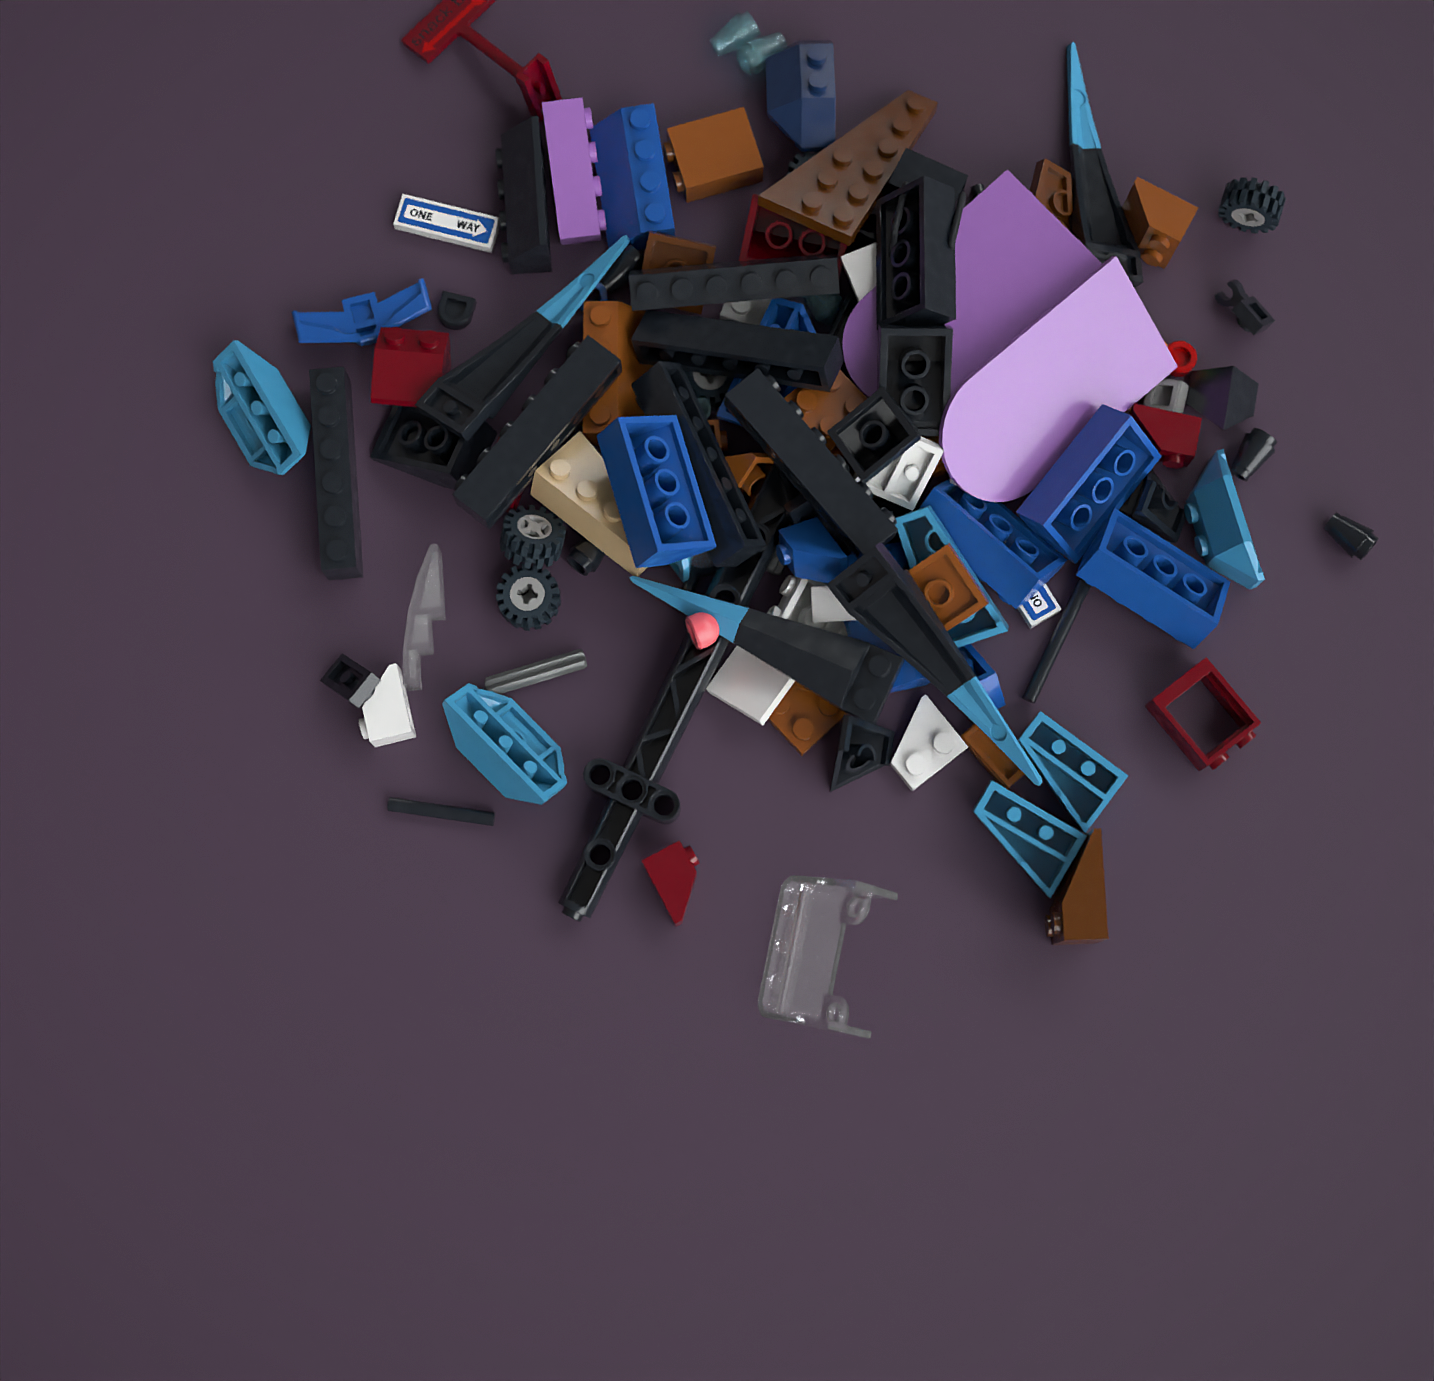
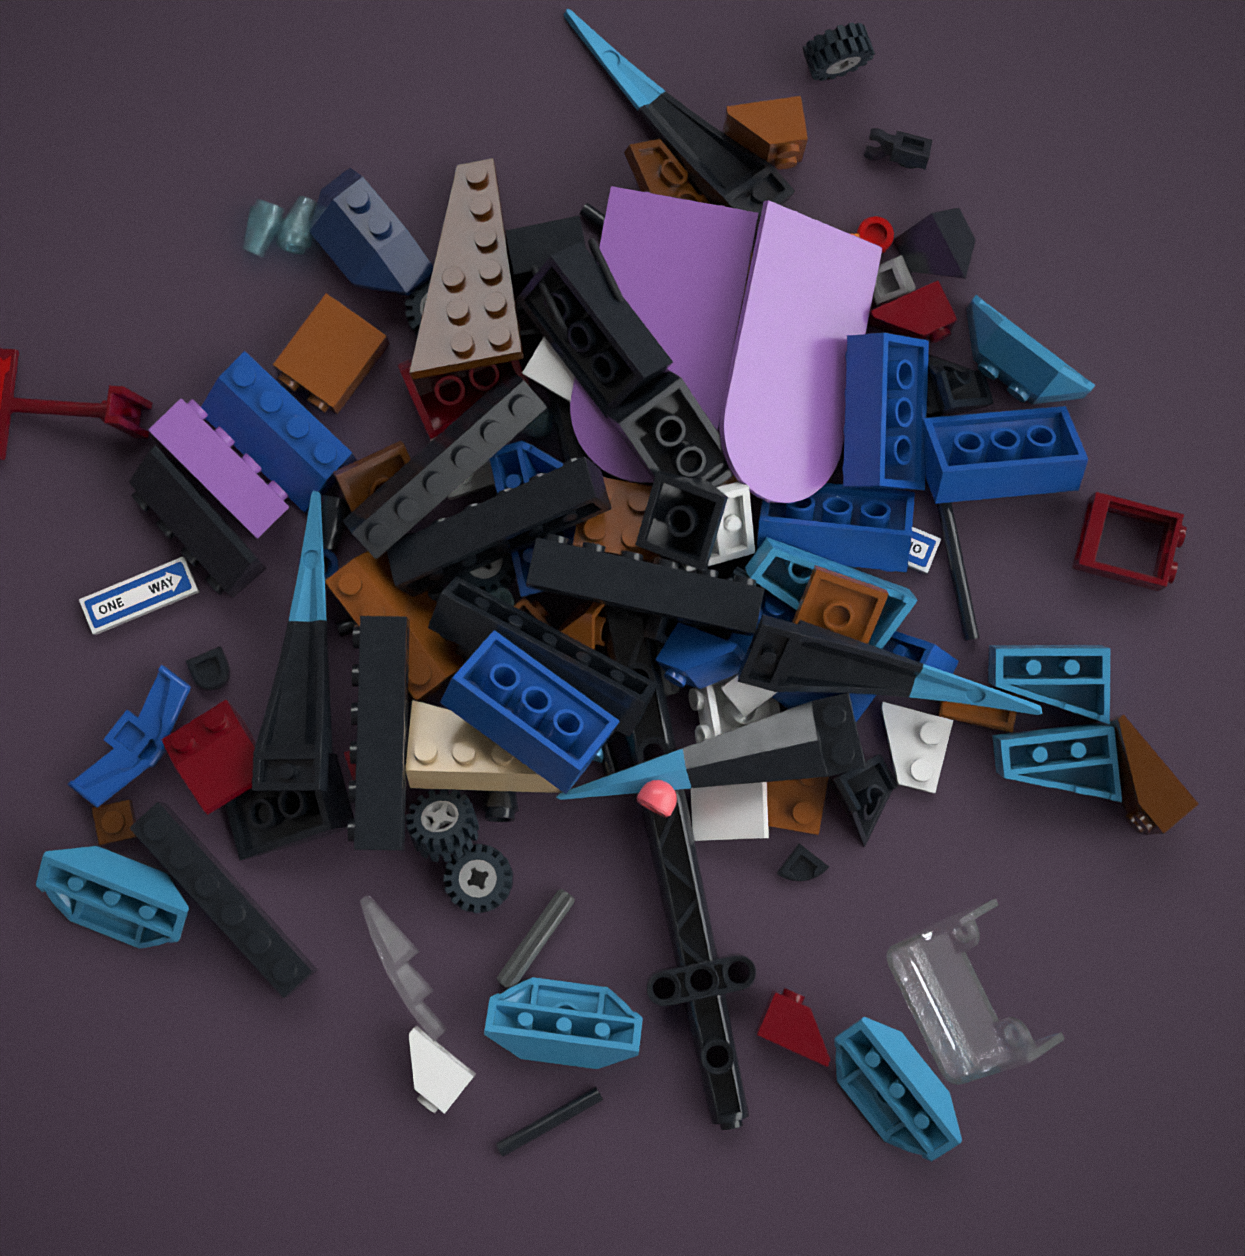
camera: 40 degrees left, 5 degrees up
(299, 363) = (113, 822): none -> reddish brown plate
(351, 680) = (384, 1073): black plate -> none
(714, 980) = (896, 1089): none -> dark azure wedge
(772, 768) = (802, 865): none -> black tile
(1253, 453) = (1001, 276): black cone -> none
(1351, 536) = (1136, 287): black cone -> none

